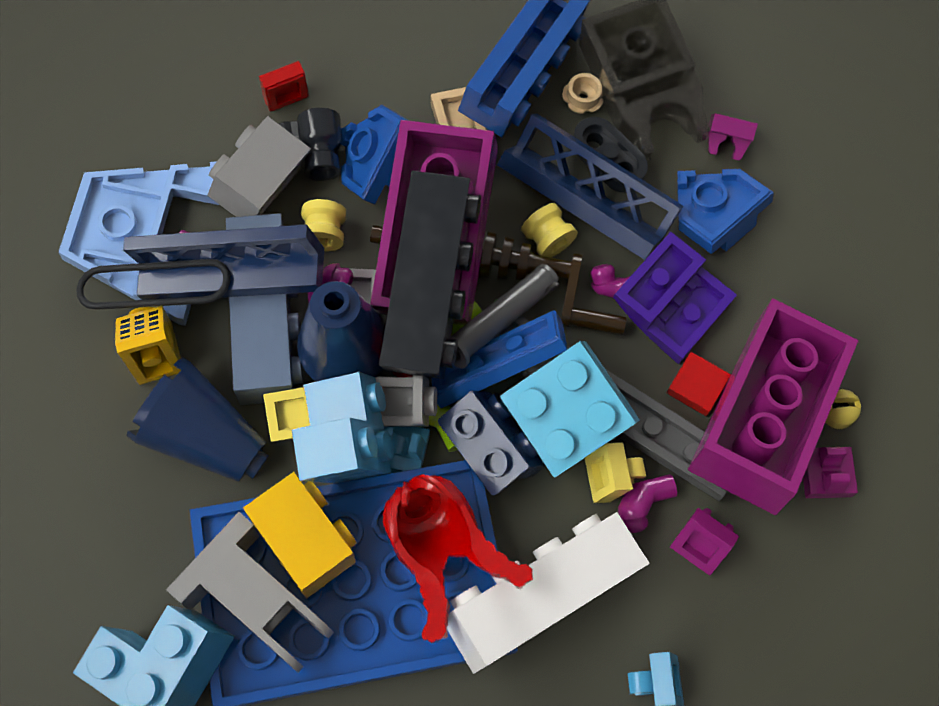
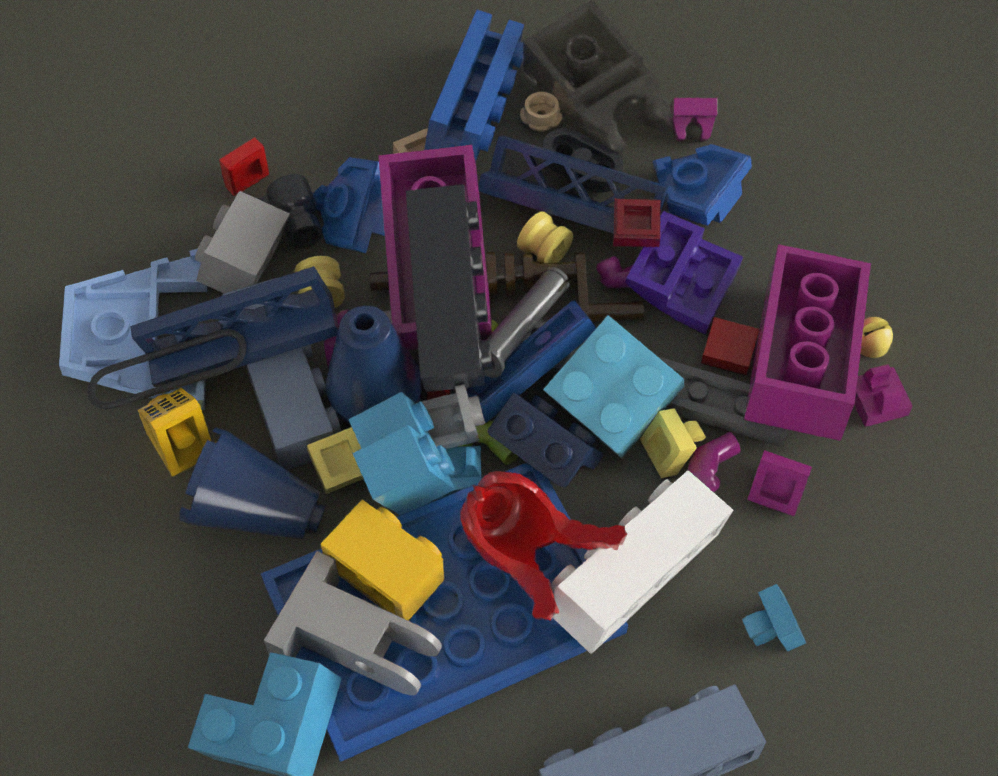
camera: 10 degrees left, 10 degrees down
(640, 239) = (636, 223): none -> dark red tile

